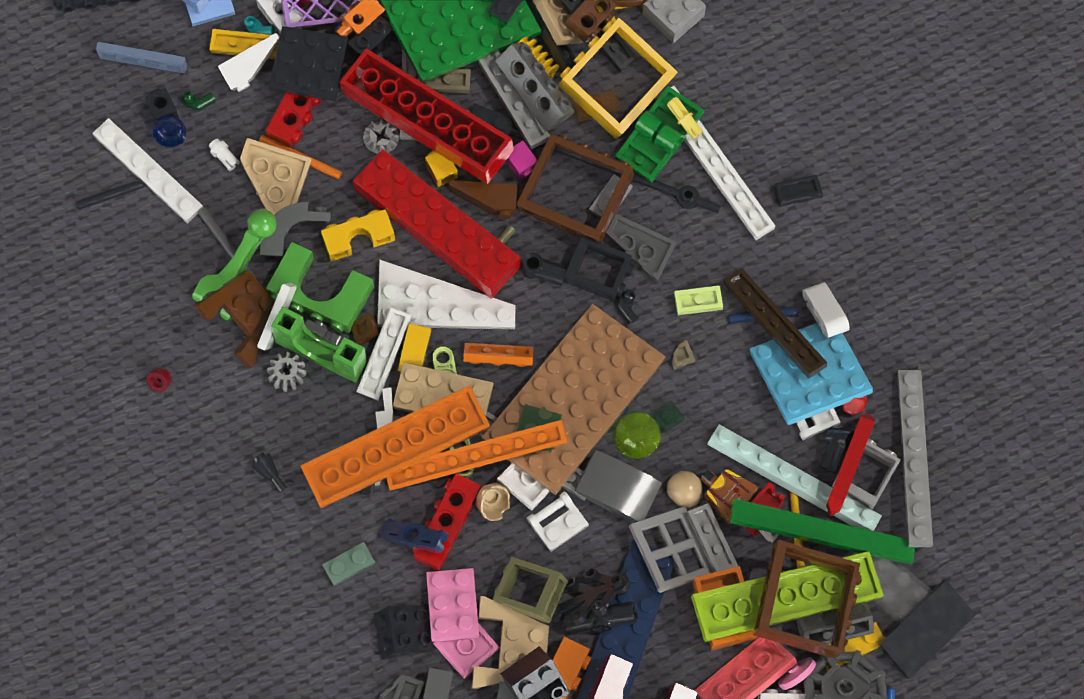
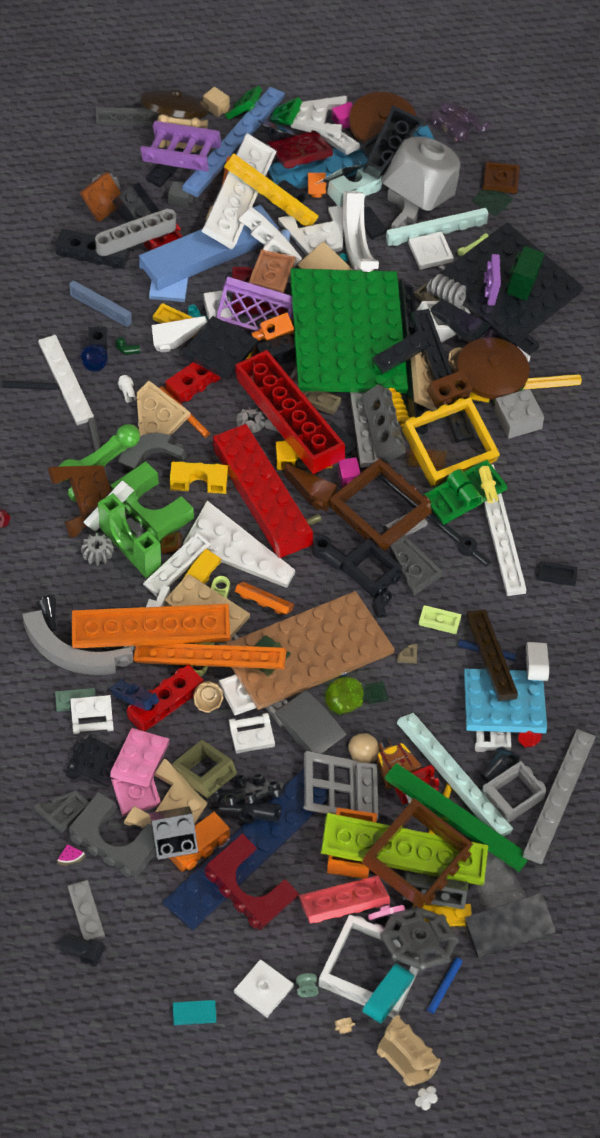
camera: 25 degrees right, 15 degrees down
(313, 517) = (72, 658): none -> light grey arch
(373, 568) = (88, 708): none -> white plate
(850, 464) = (481, 793): red piece -> none

